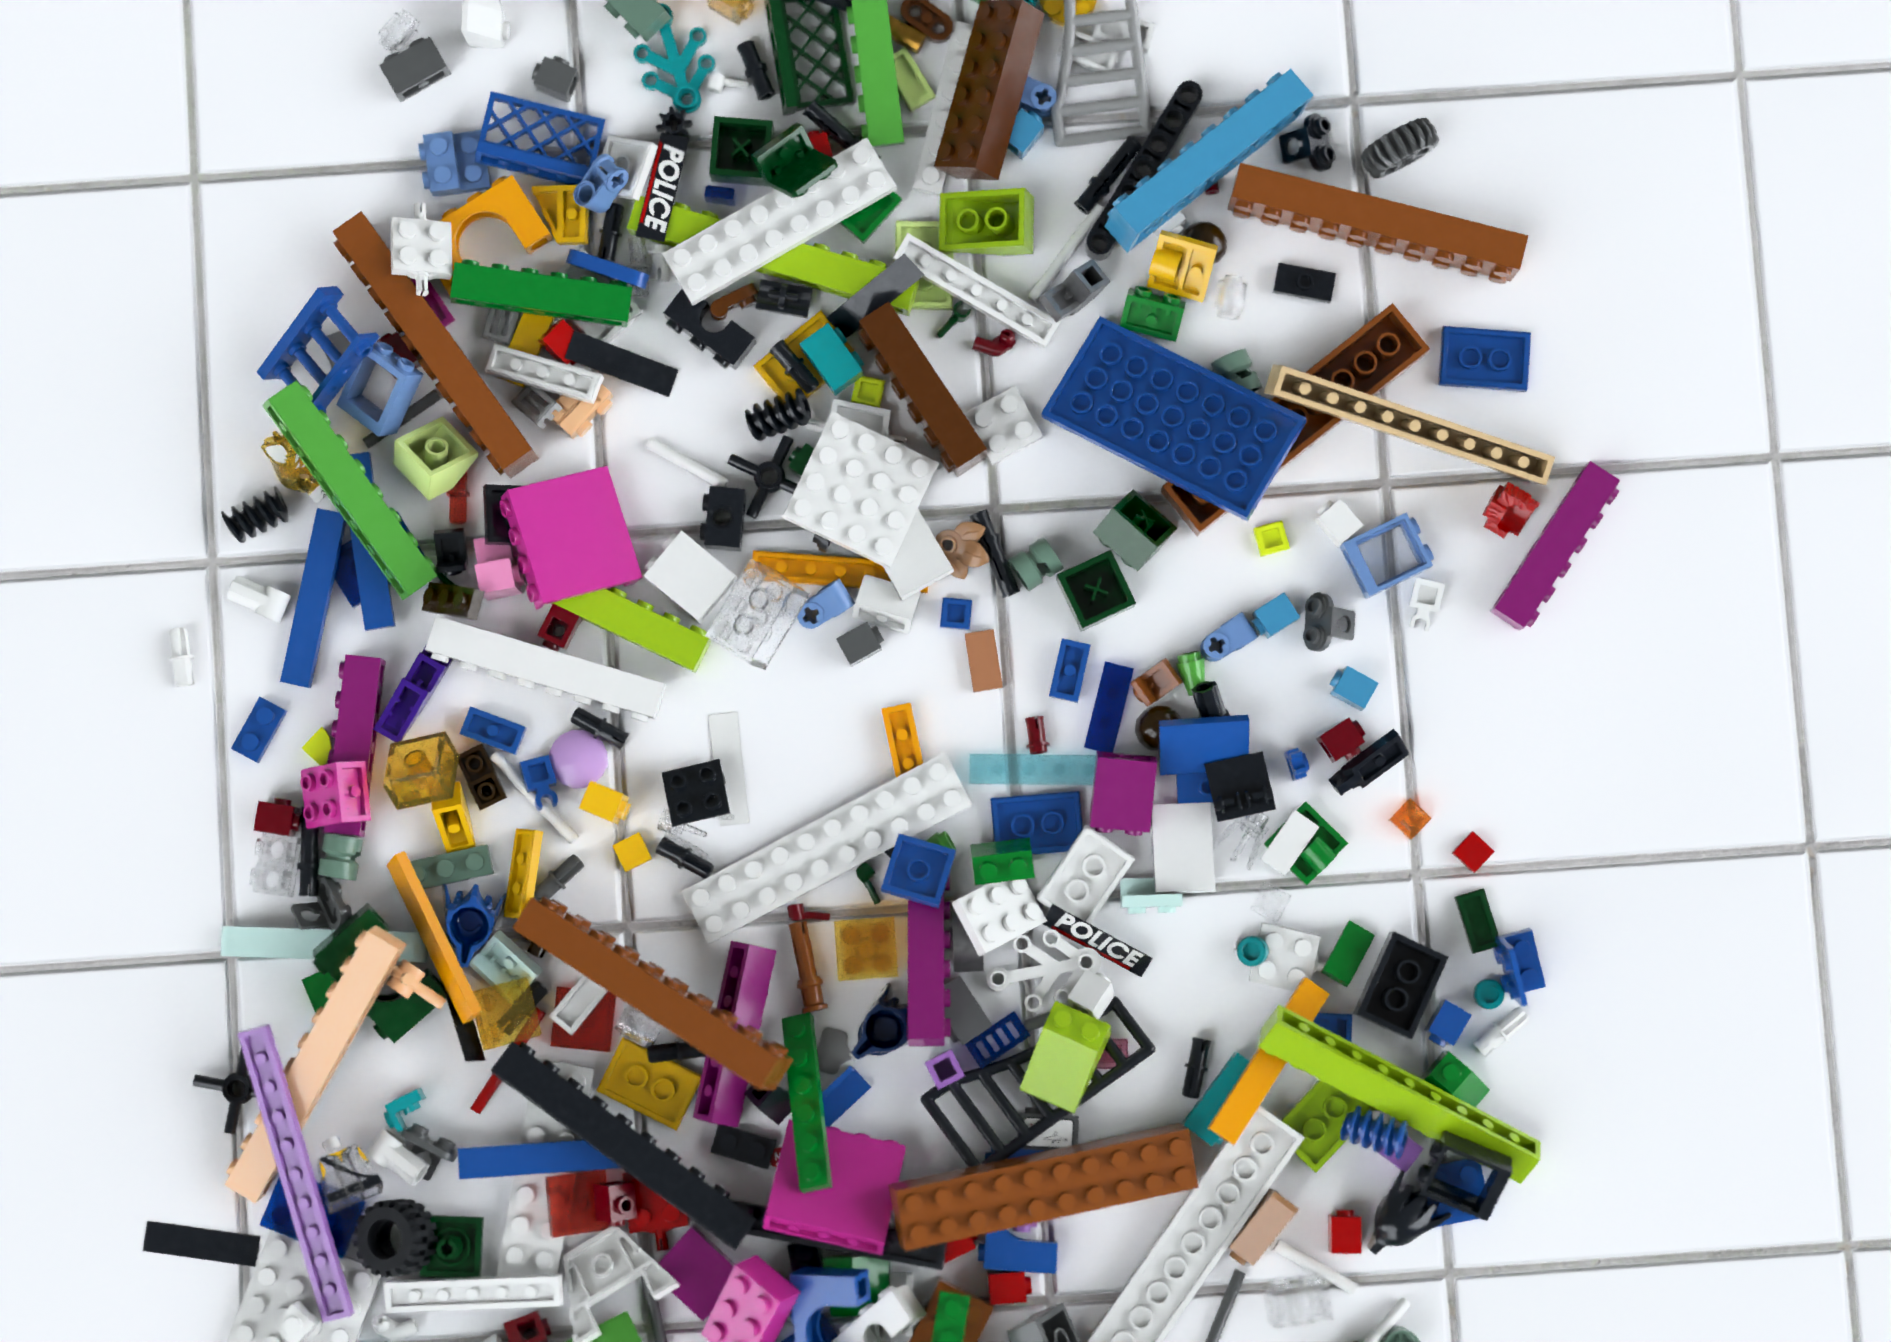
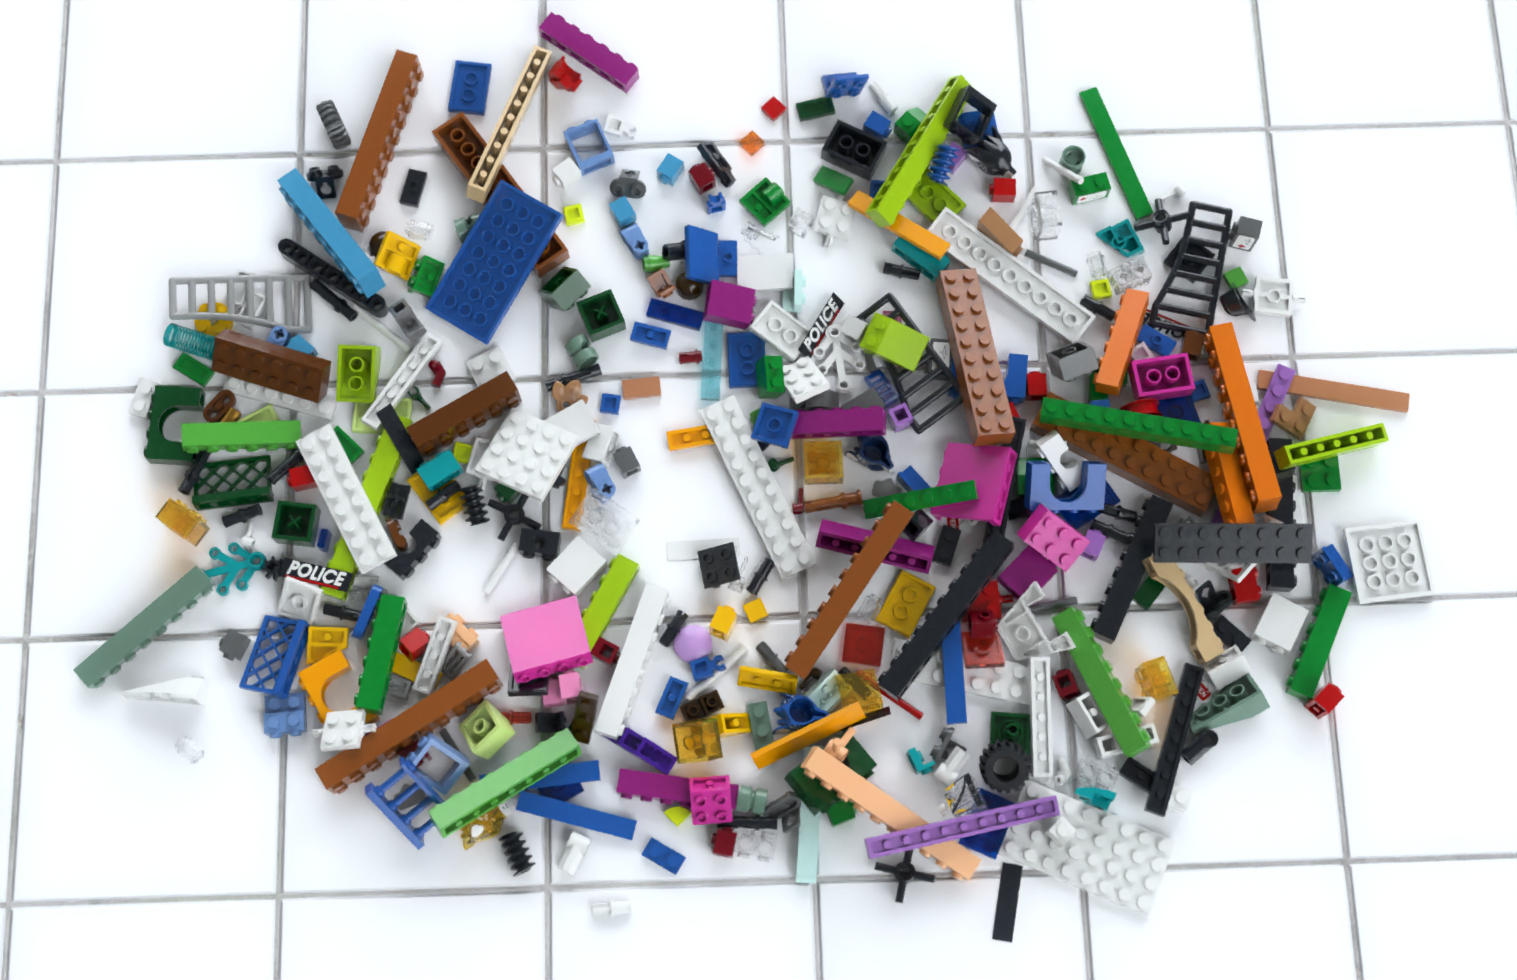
camera: 90 degrees left, 10 degrees down
(414, 68) = (217, 739): dark grey brick -> none
(578, 1004) = (852, 645): white tile -> none
(599, 185) = (309, 612): medium blue piece -> none
(621, 363) = (431, 606): black sticker -> none
(672, 1051) = (885, 584): black axle -> none
(792, 163) = (310, 486): dark green bracket -> none
(1240, 786) = (728, 235): black hinge -> none
(1252, 951) = (830, 233): teal tile -> none
(1289, 842) = (764, 208): white tile -> none
(1488, 994) = (859, 104): teal tile -> none

